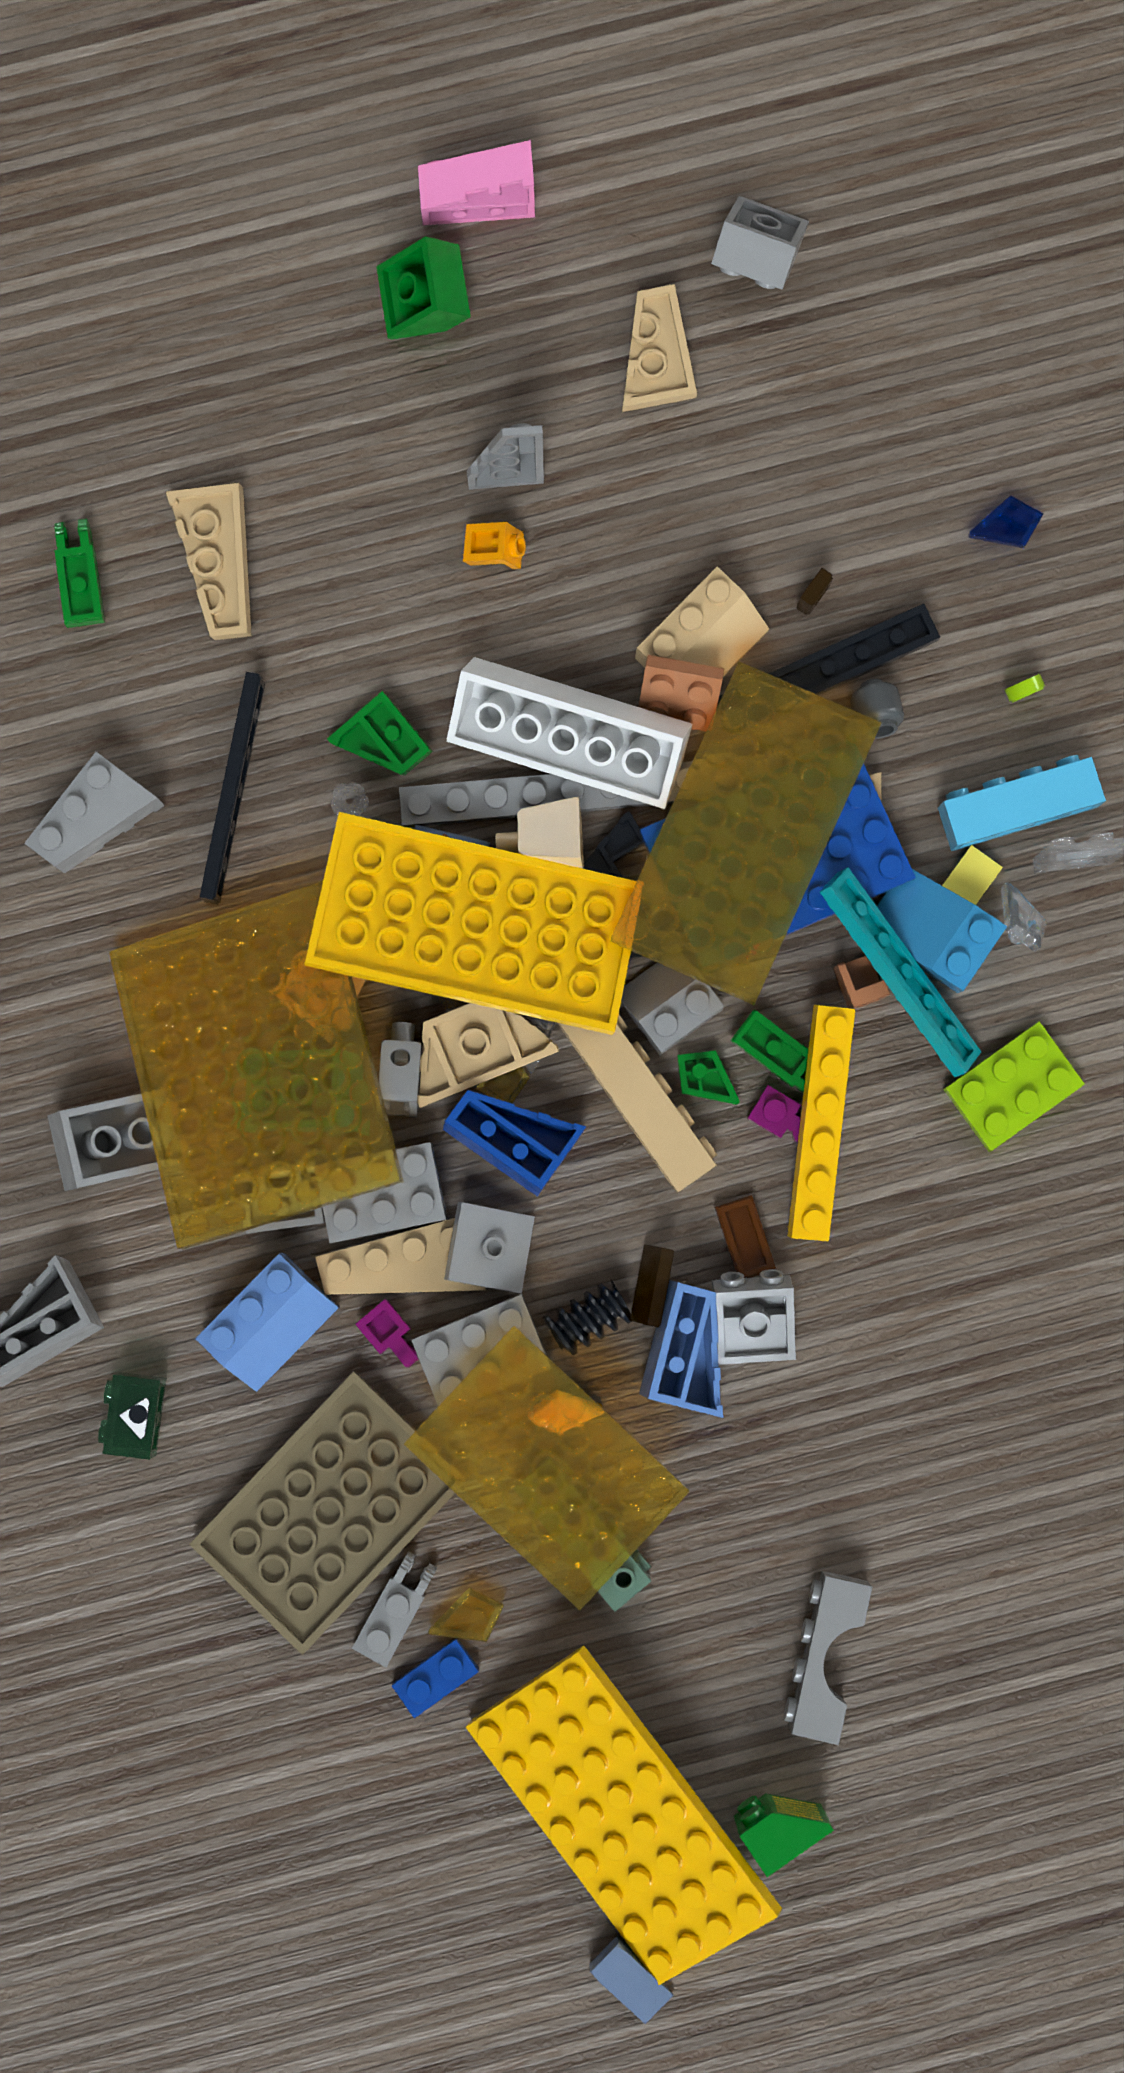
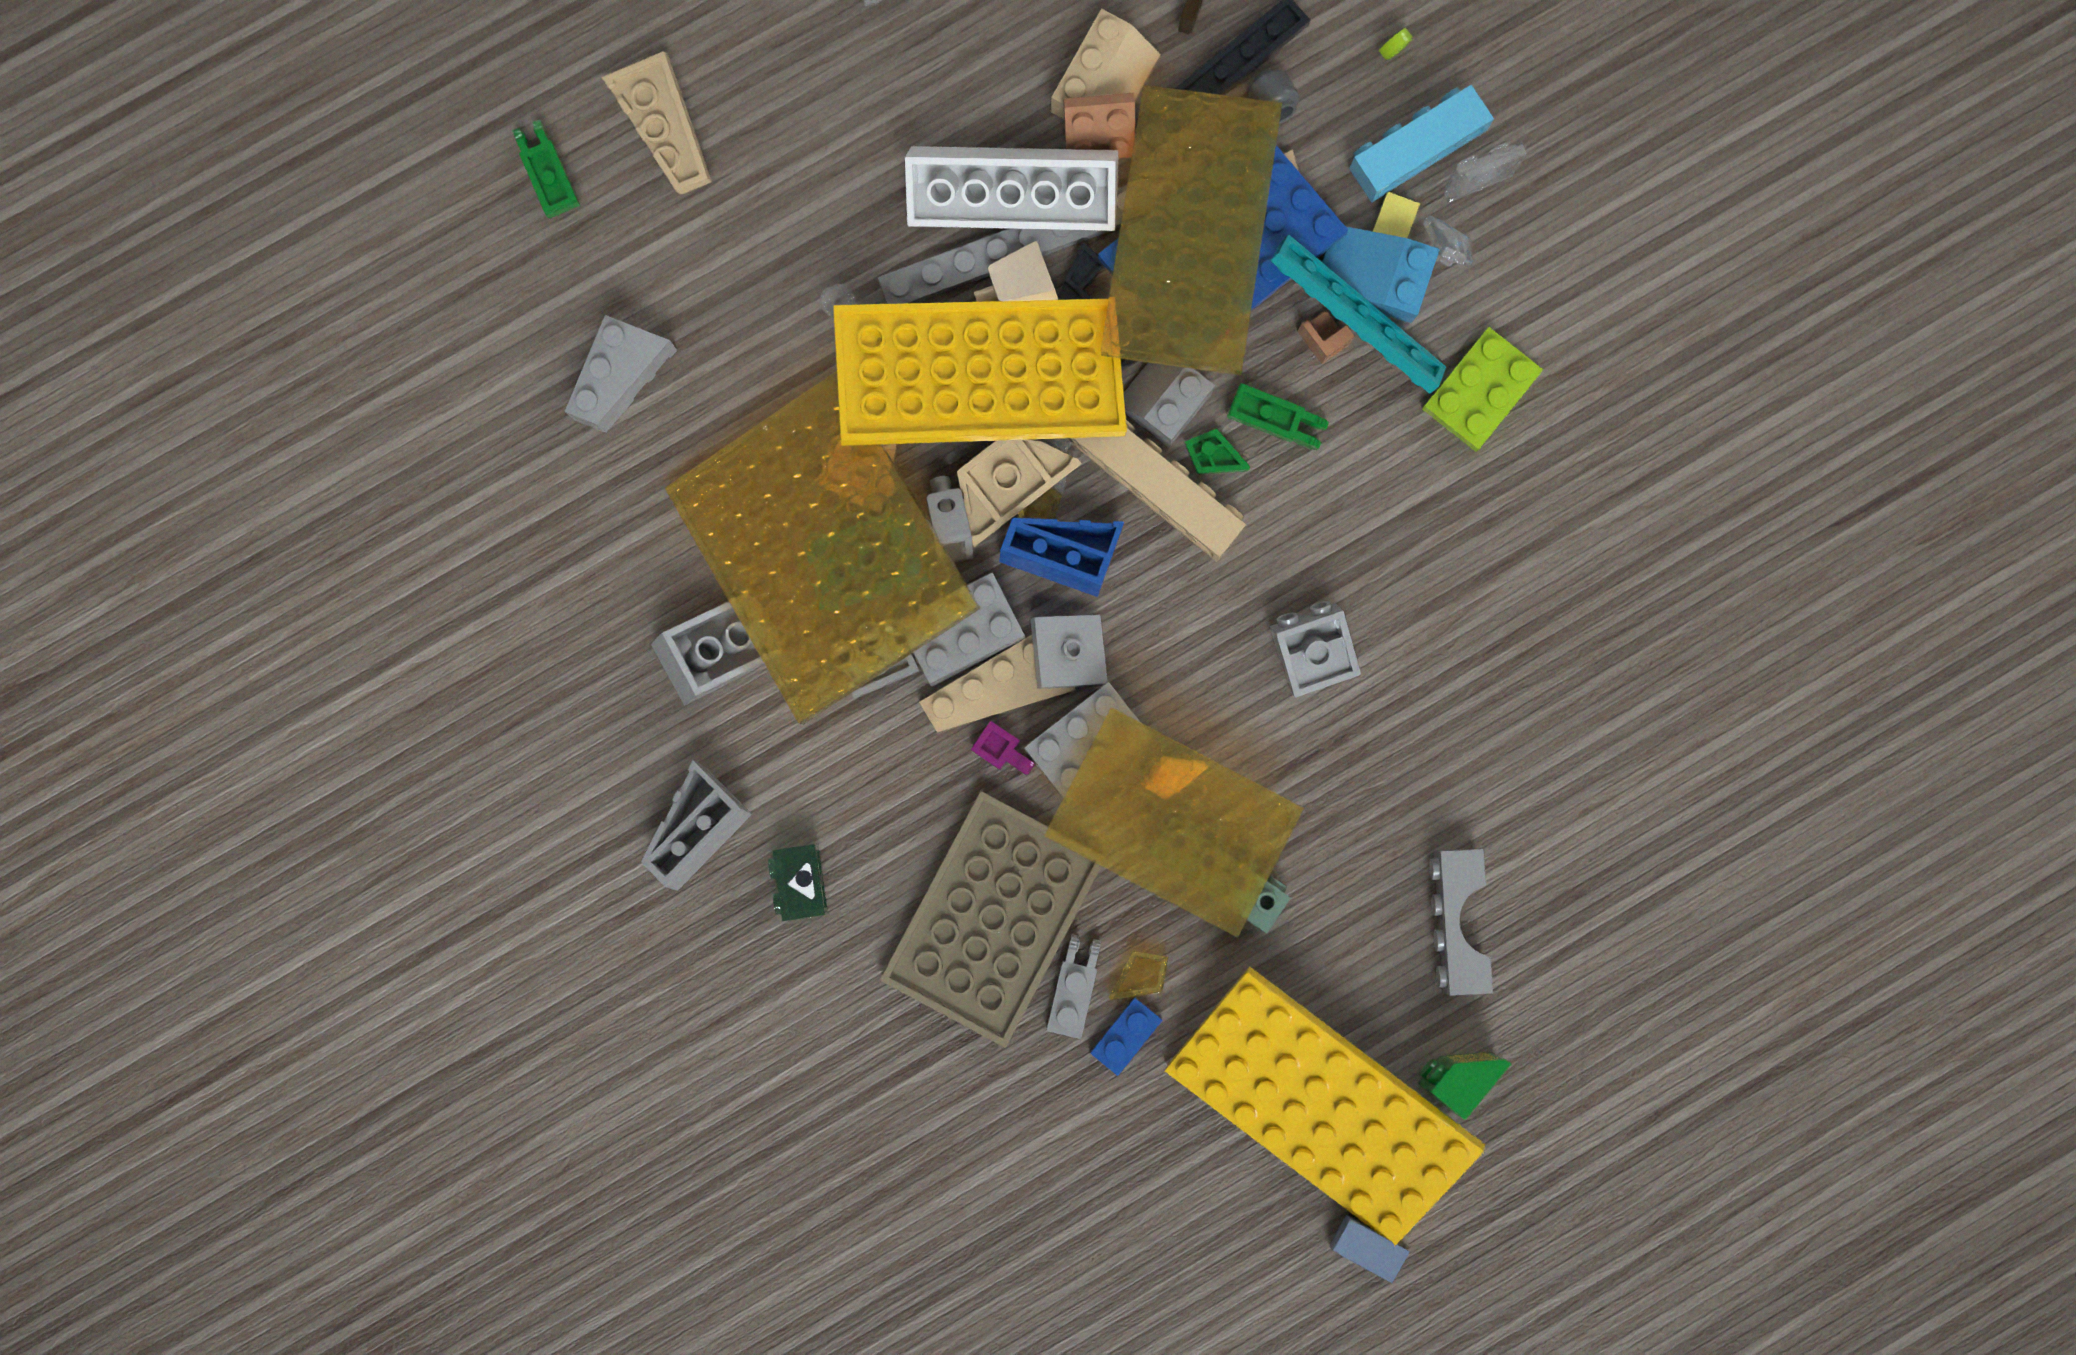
camera: 15 degrees left, 0 degrees up
(232, 788) = (733, 317): black tile -> none
(267, 1322) = (894, 769): medium blue slope -> none
(382, 736) = (850, 237): green wing -> none
(494, 544) = (900, 45): light orange bracket -> none
(588, 1318) = (1171, 688): black piece -> none
(652, 1285) = (1219, 645): dark brown tile -> none
(684, 1352) = (1263, 692): medium blue wedge -> none
(745, 1237) = (1286, 582): reddish brown tile -> none
(776, 1113) = (1285, 469): magenta plate -> none
(821, 1123) = (1325, 464): yellow plate -> none

